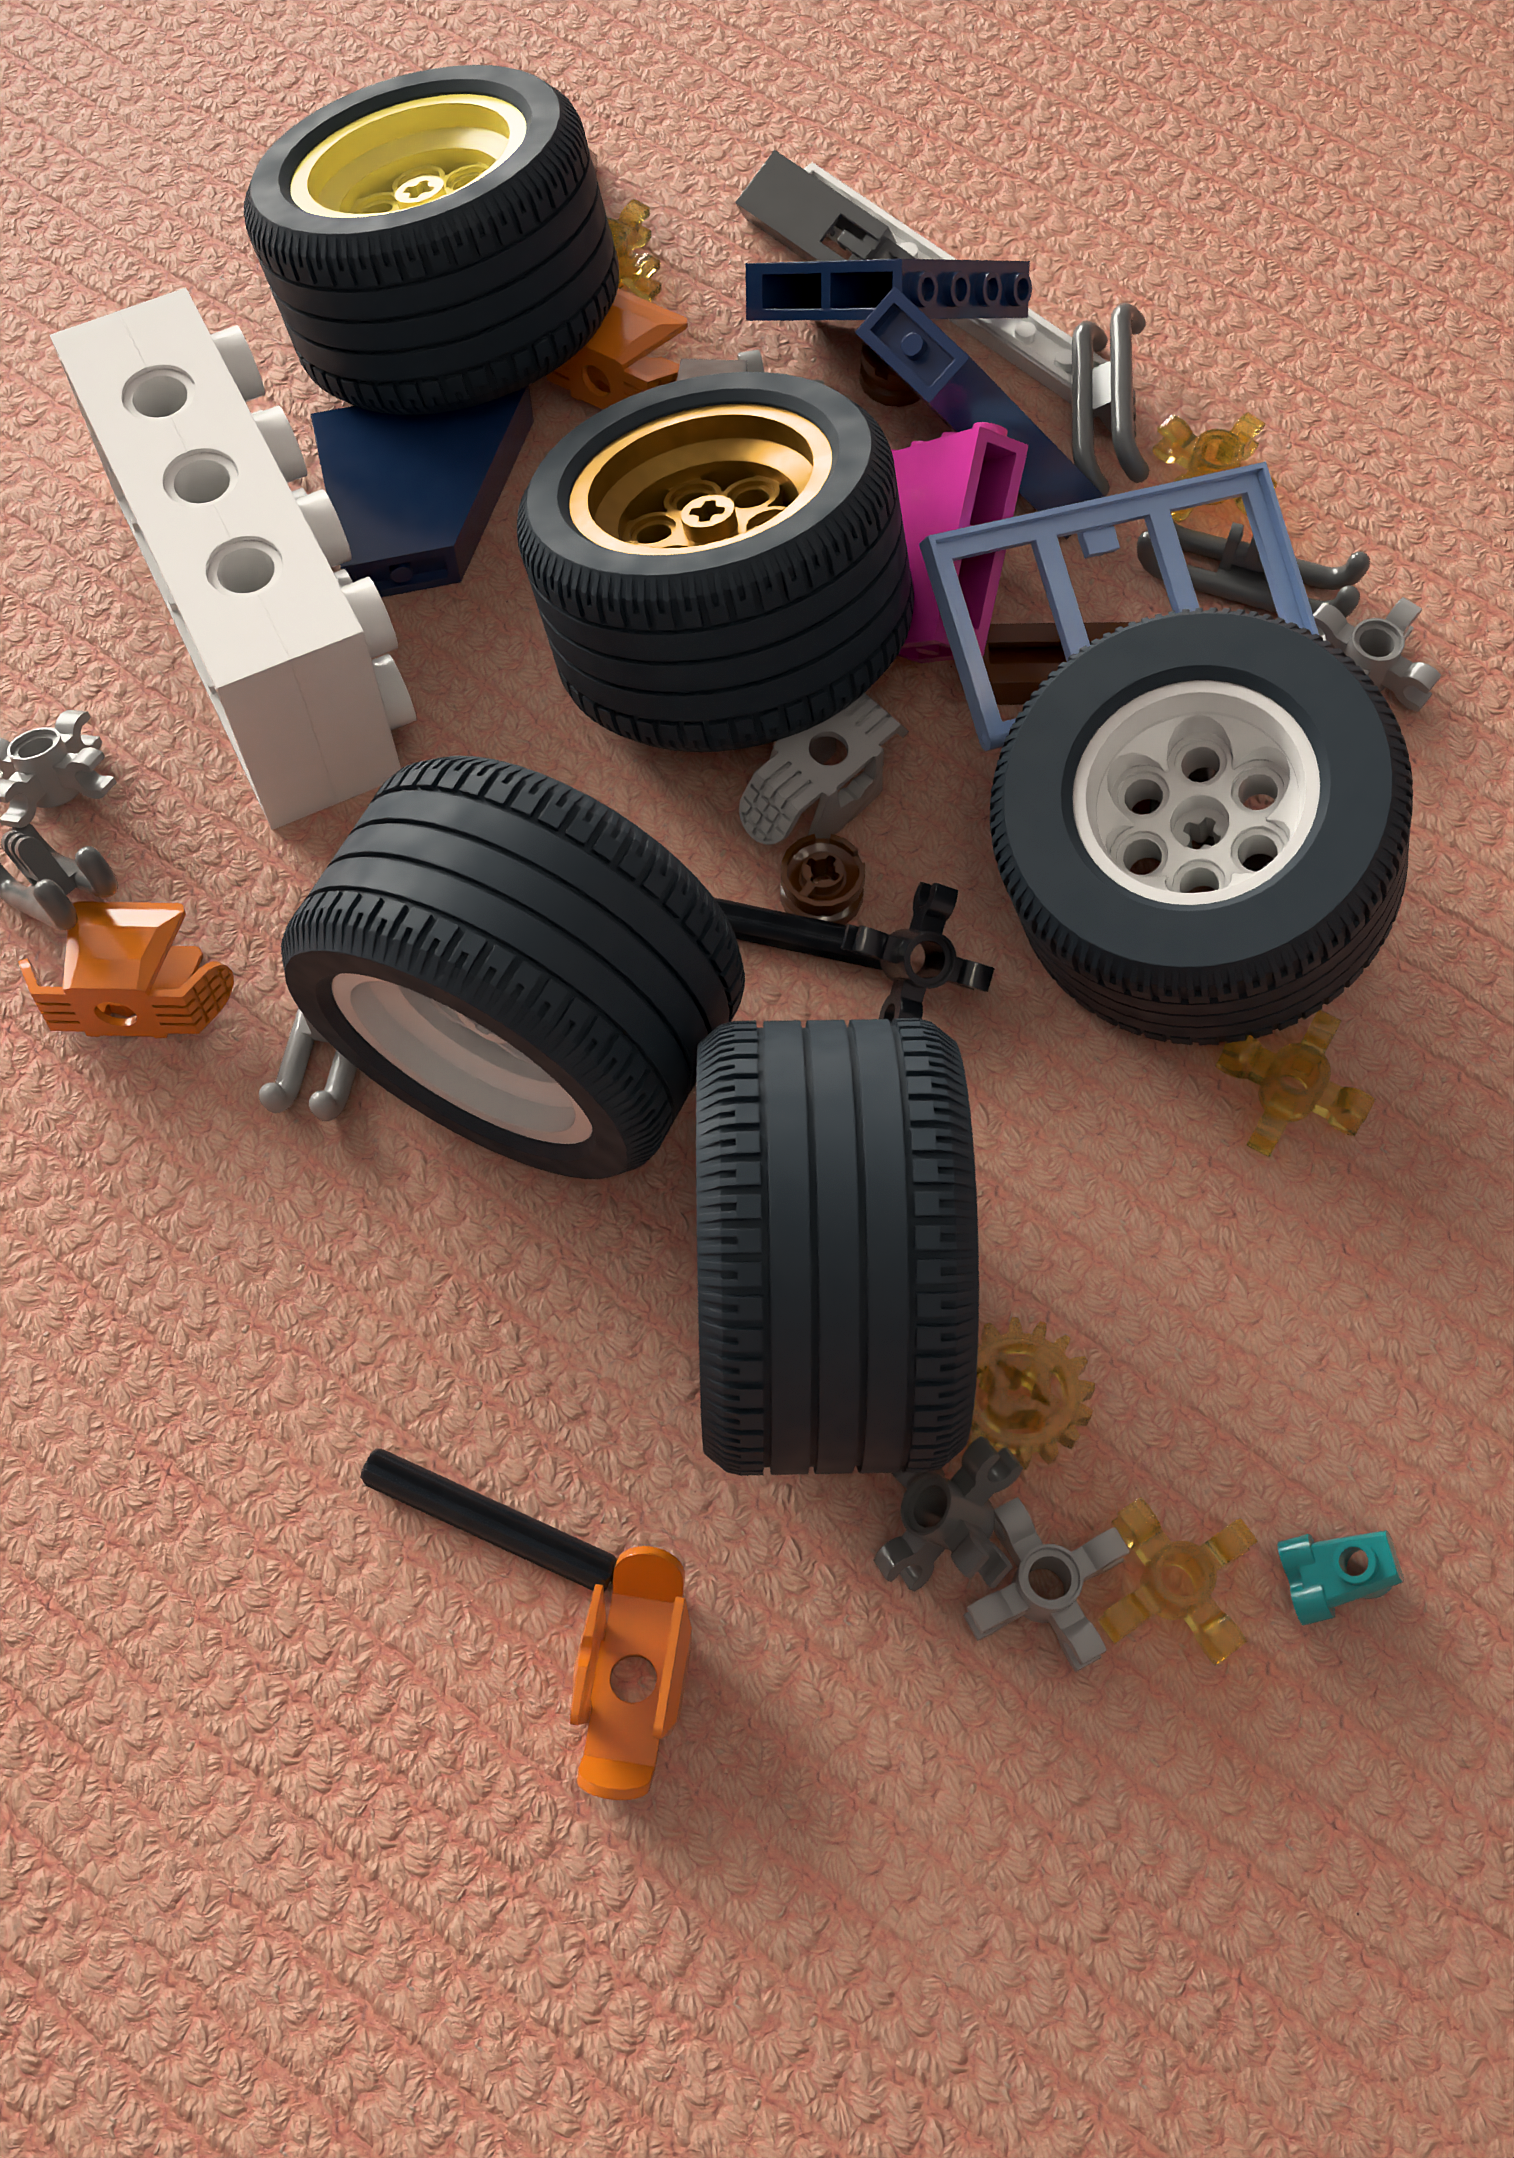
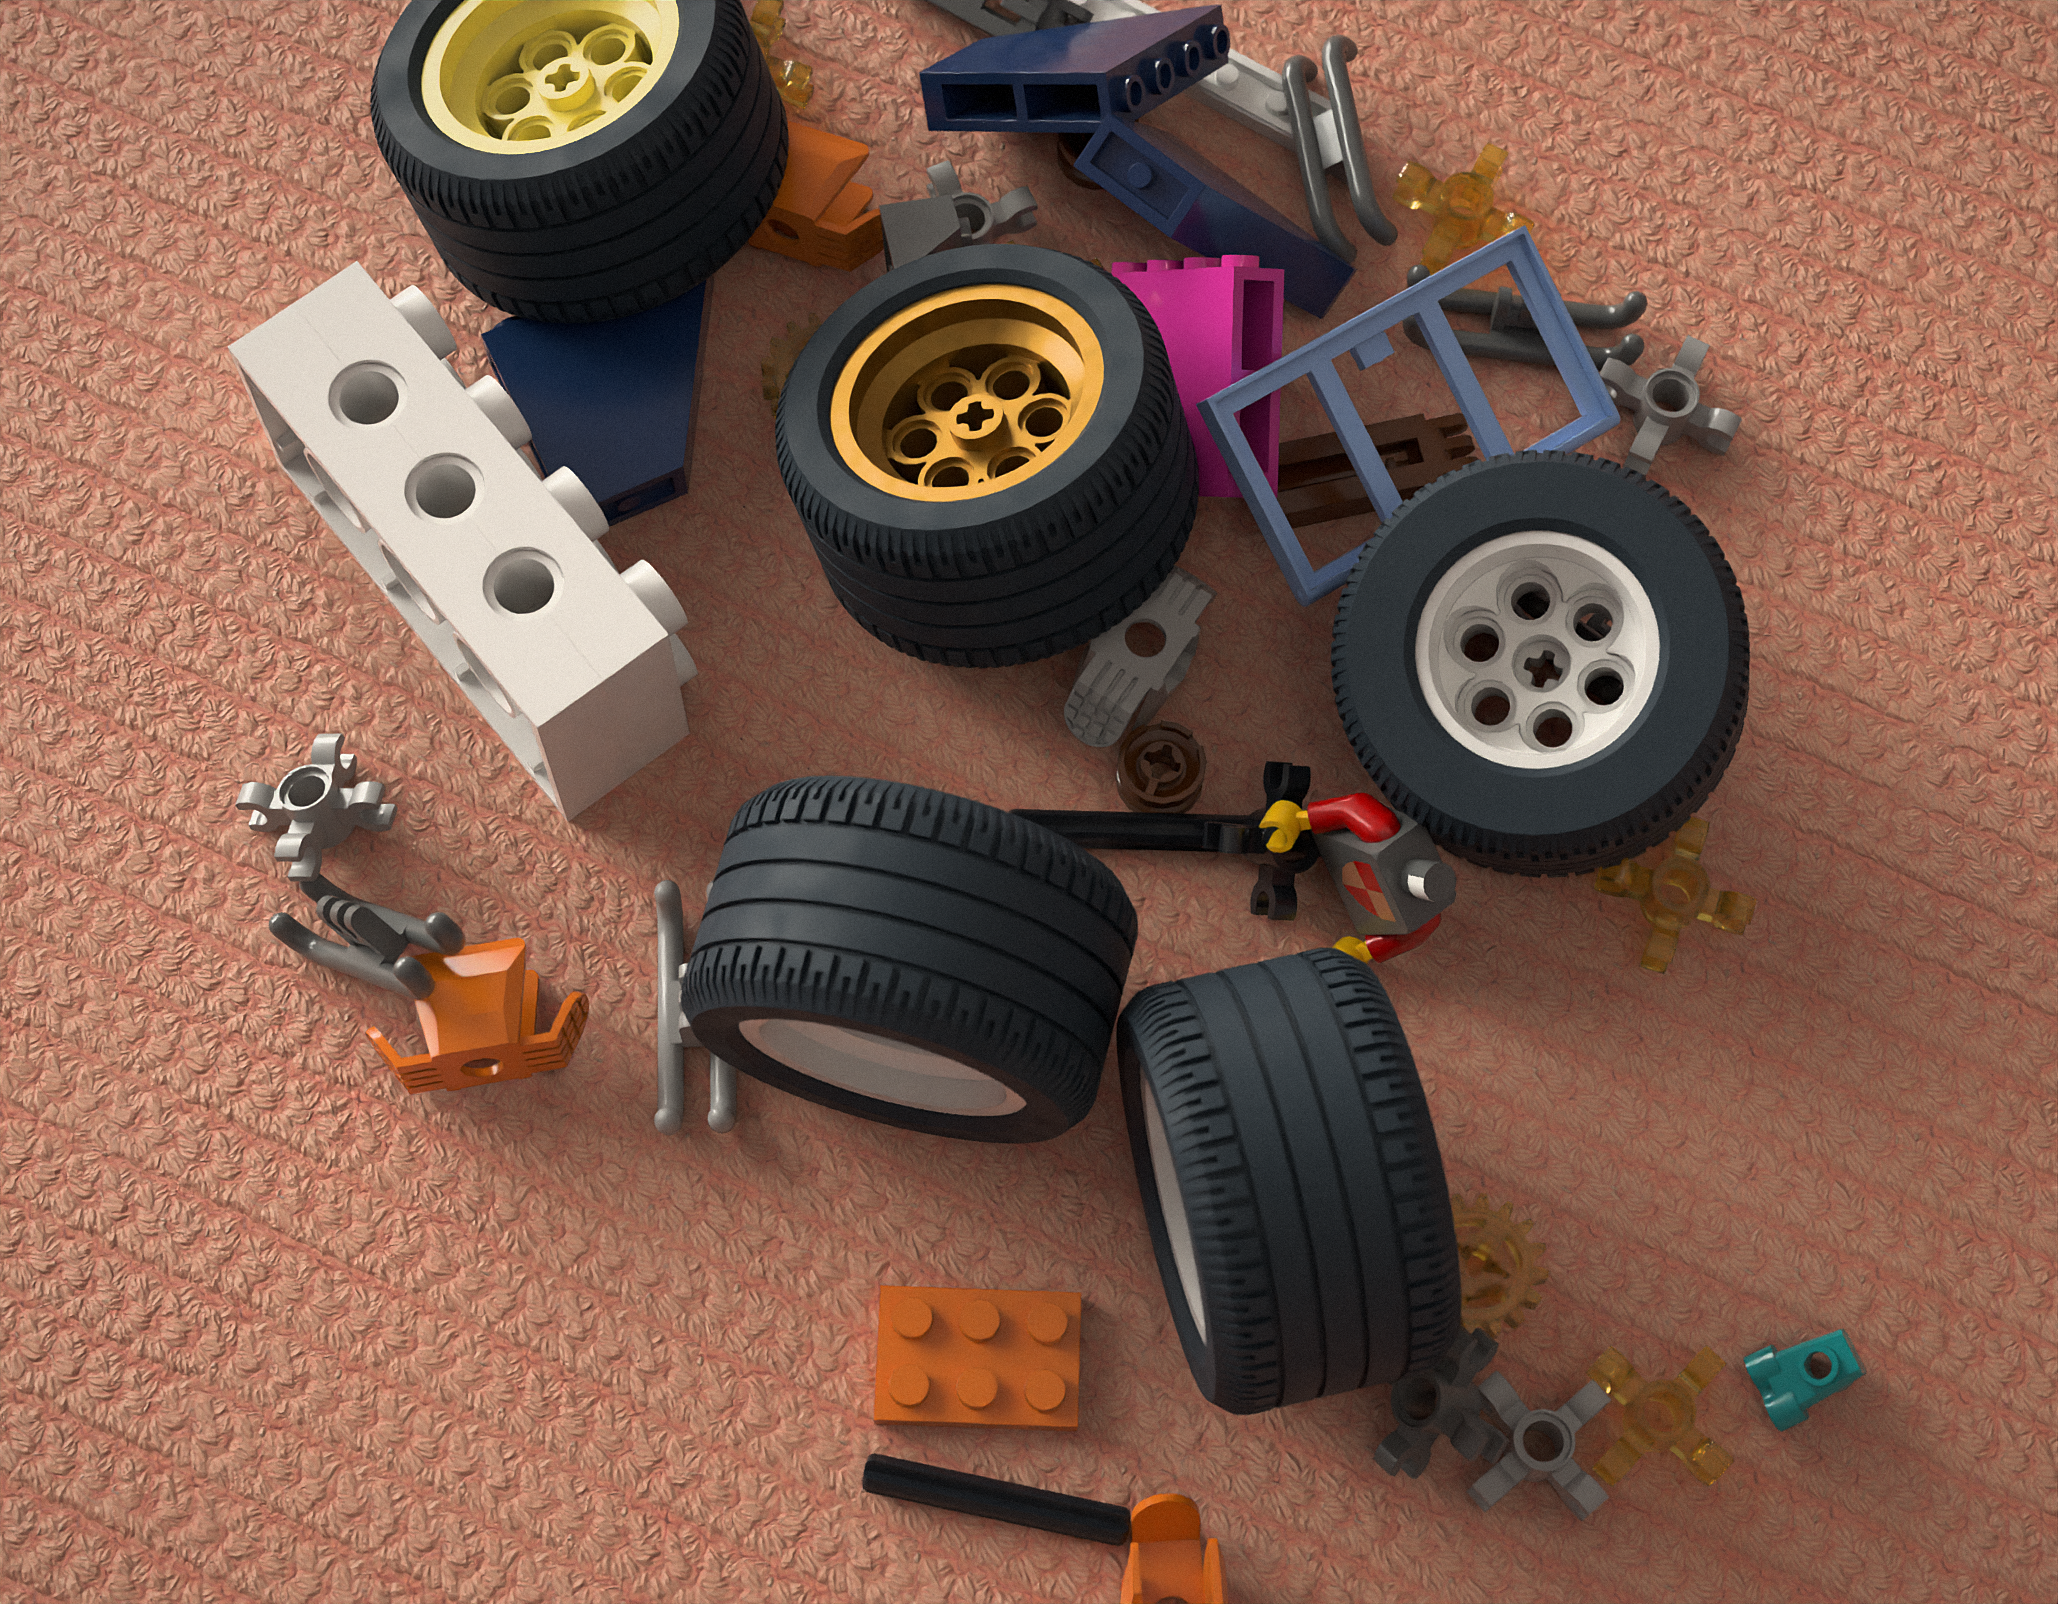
camera: 15 degrees left, 5 degrees up
(508, 1381) = (978, 1358): none -> orange plate
(1004, 989) = (1379, 866): none -> torso

